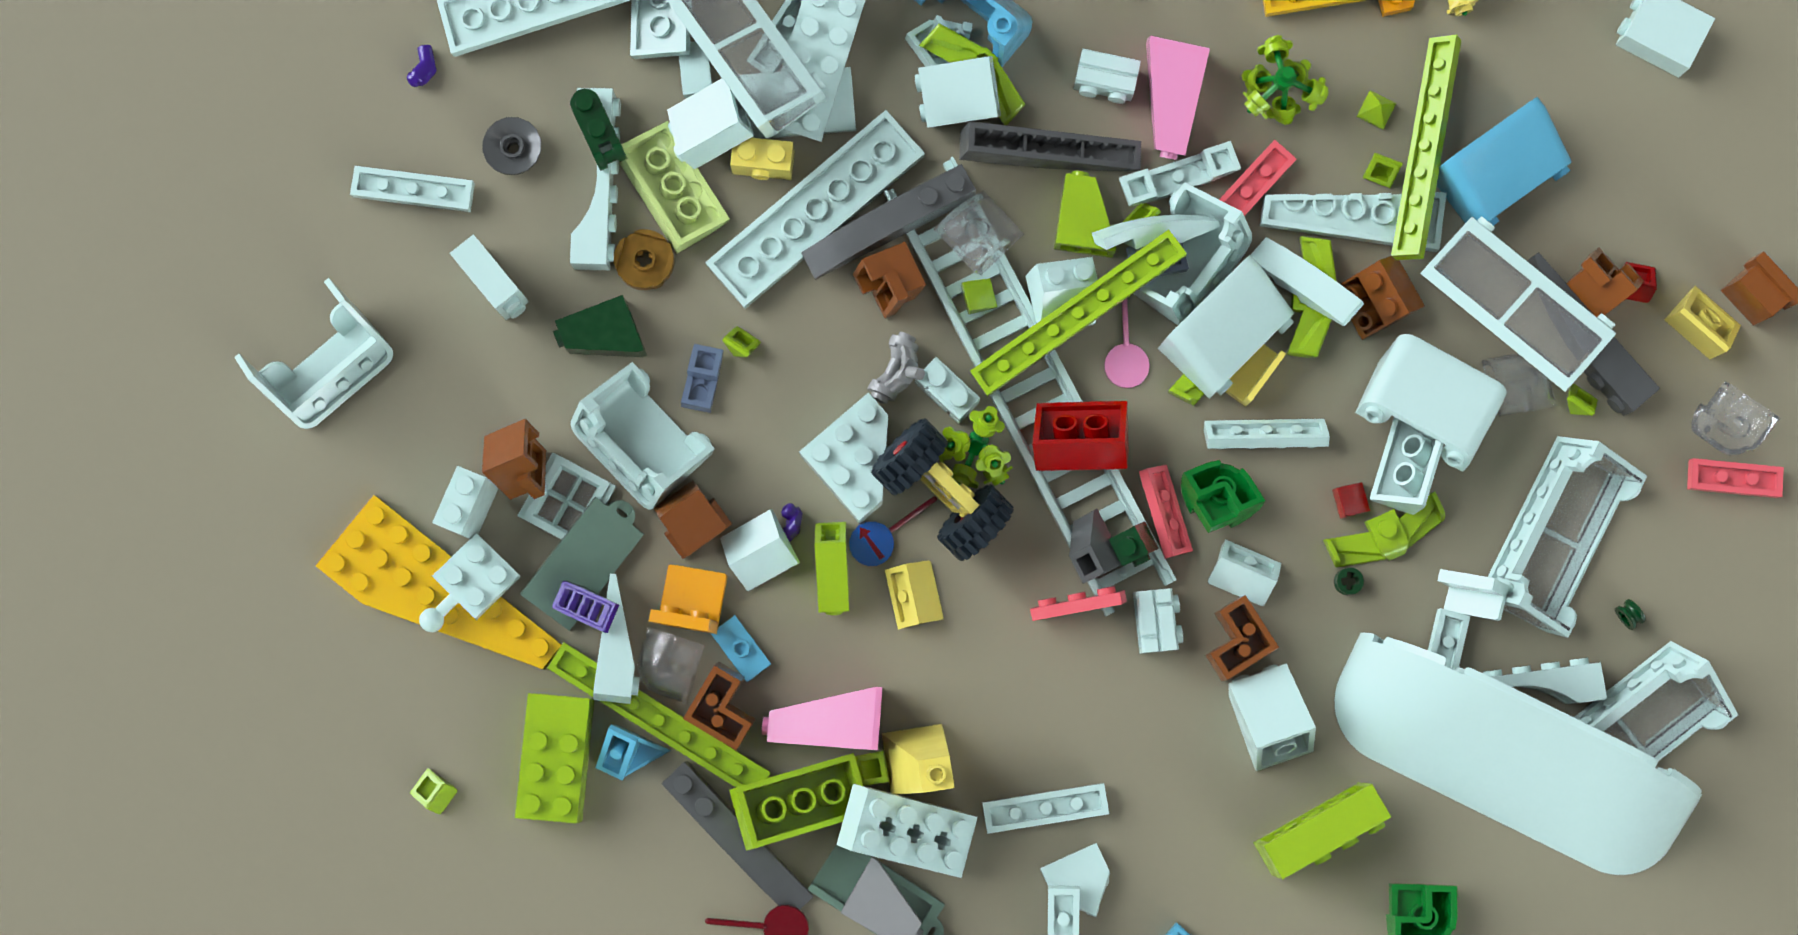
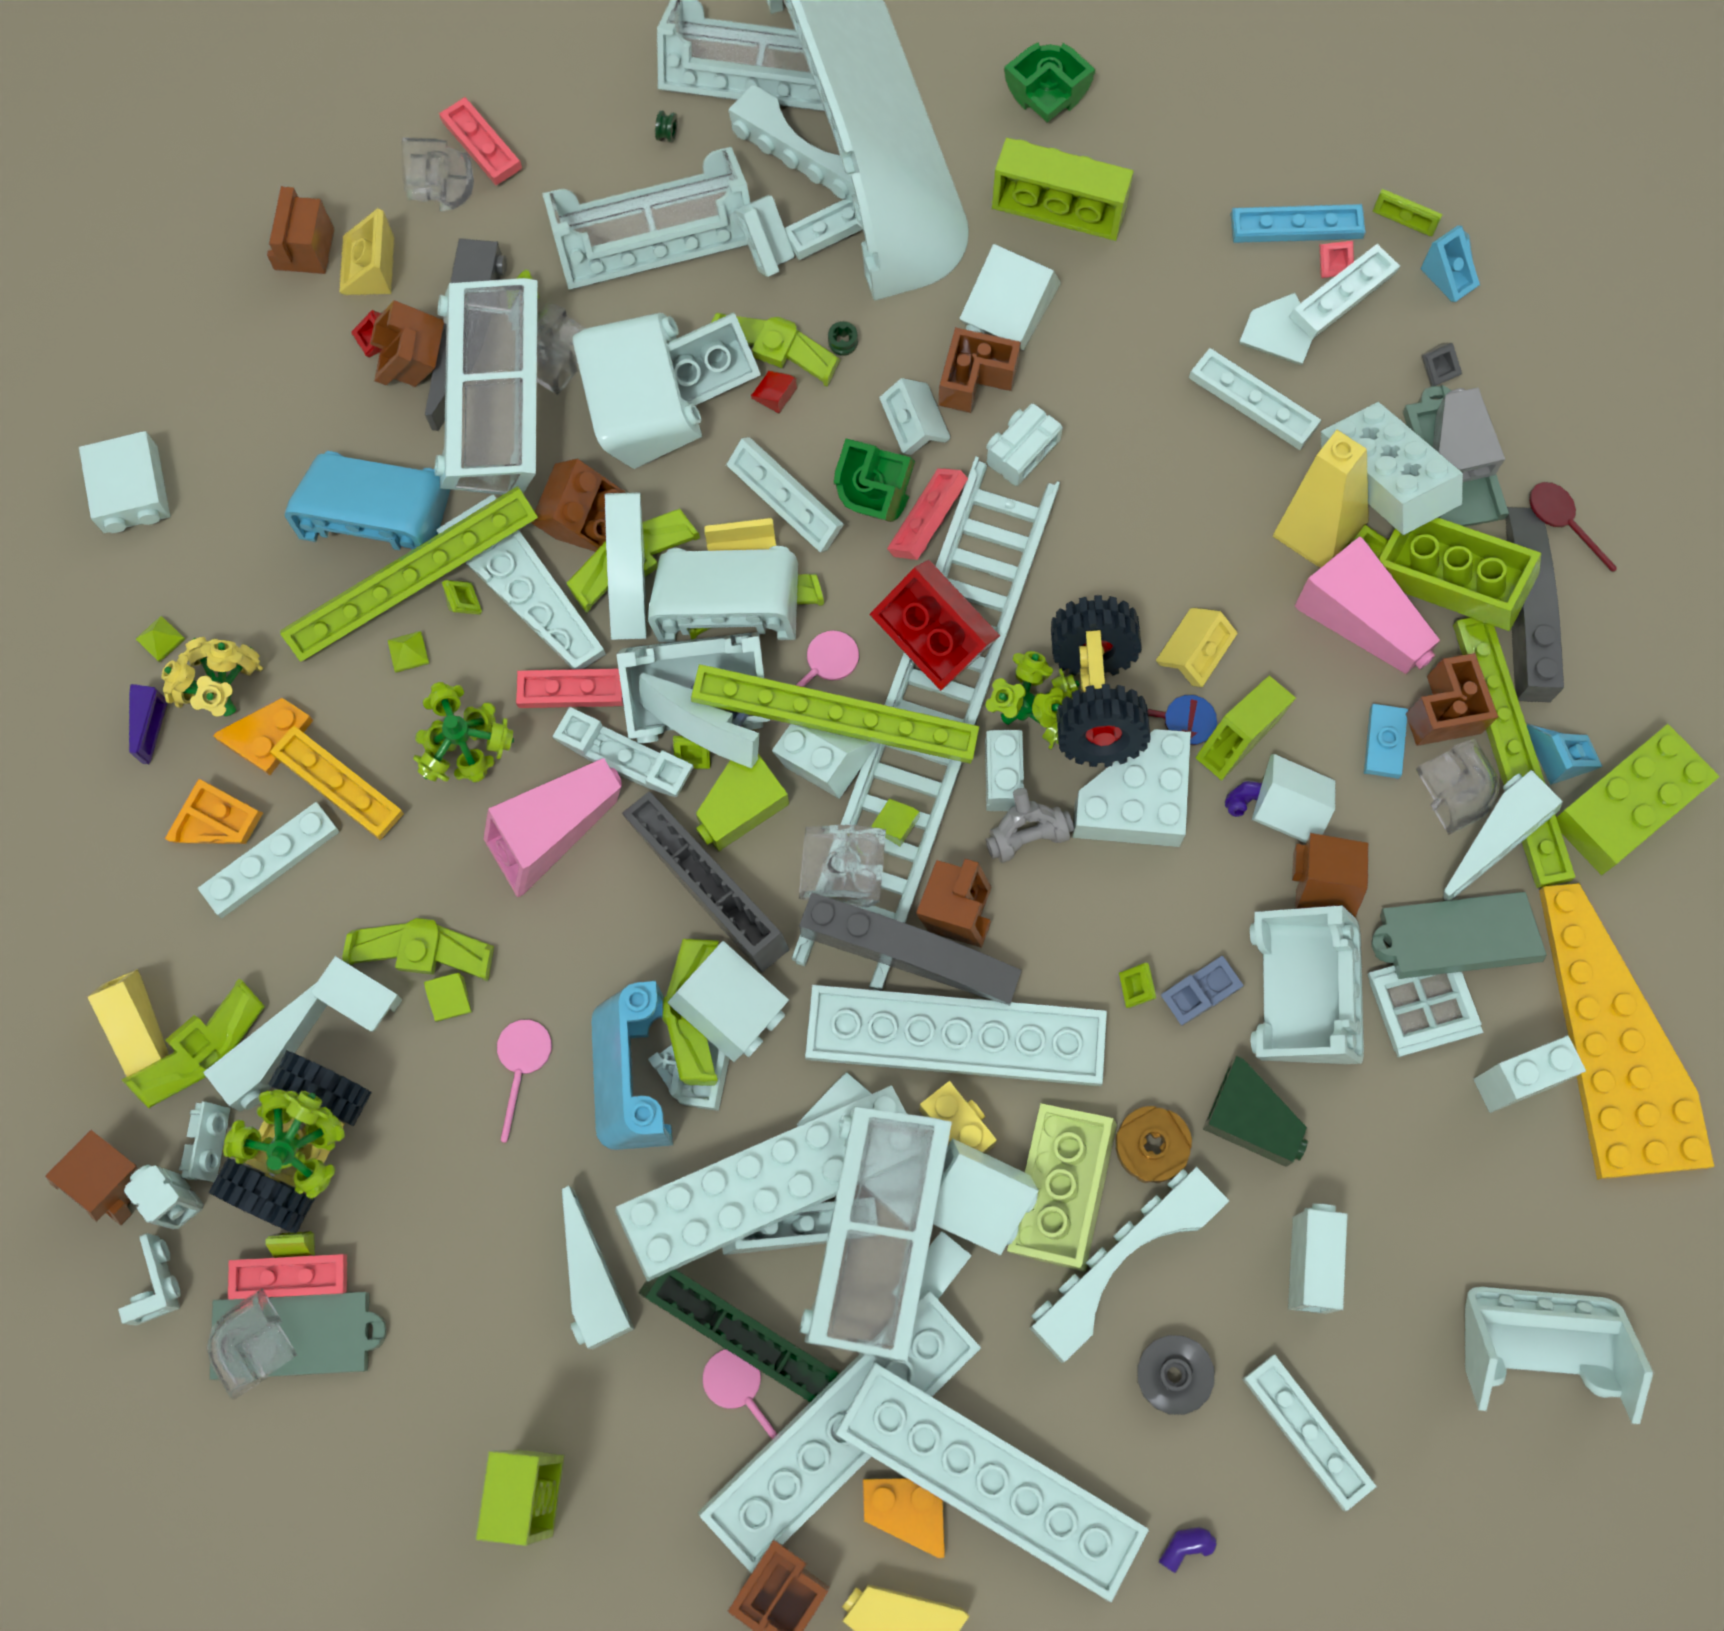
camera: 130 degrees left, 10 degrees down
(472, 577) = (1583, 1008): light aqua plate -> none
(515, 460) = (1448, 1068): dark orange plate -> none
(569, 598) = (1508, 905): slope -> none
(596, 127) = (1085, 1299): dark green plate -> none
(691, 599) = (1397, 812): light orange bracket -> none
(1078, 603) = (1075, 506): coral plate -> none
(1091, 547) = (1018, 534): dark grey slope -> none
(1106, 76) = (588, 895): light aqua brick -> none
(1134, 545) = (983, 506): dark green brick -> none

